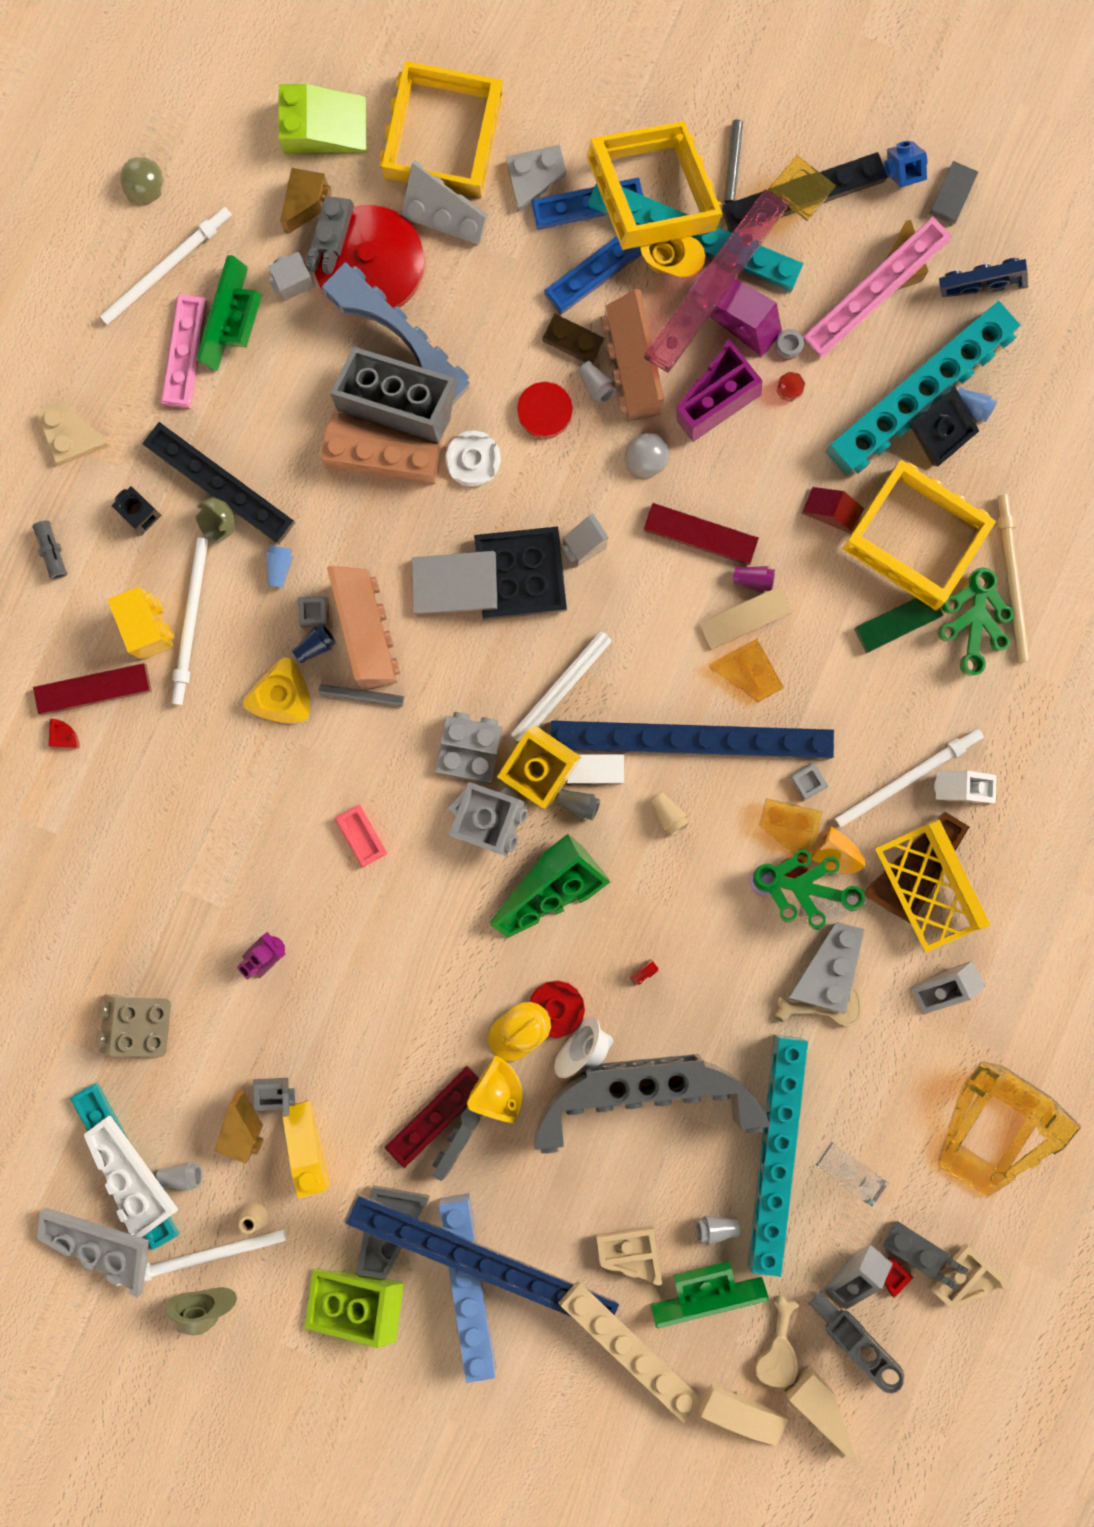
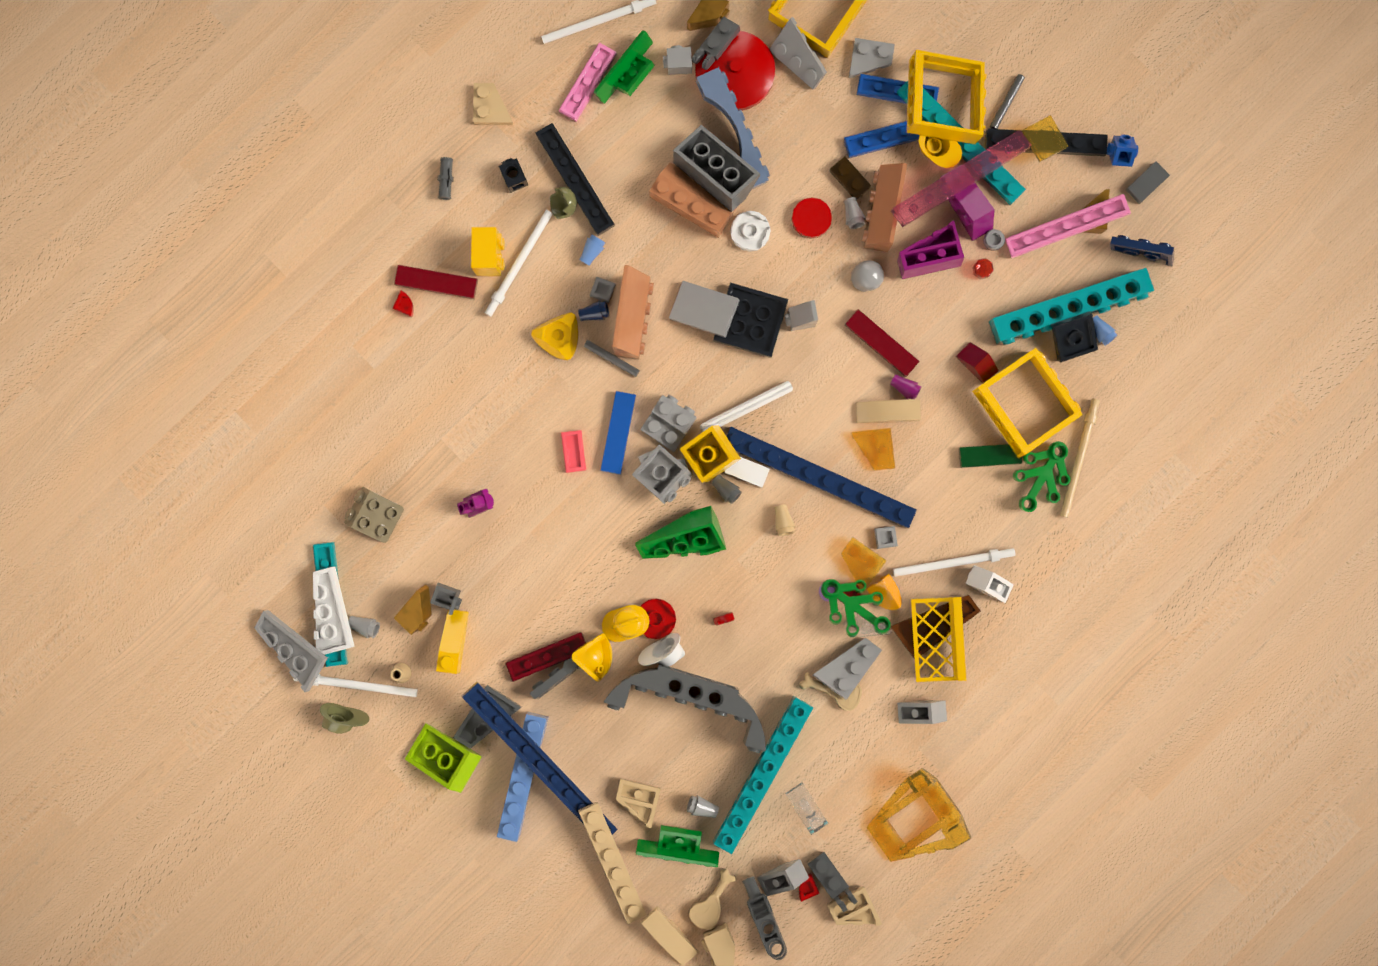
camera: 25 degrees right, 0 degrees up
(409, 788) = (618, 432): none -> blue tile

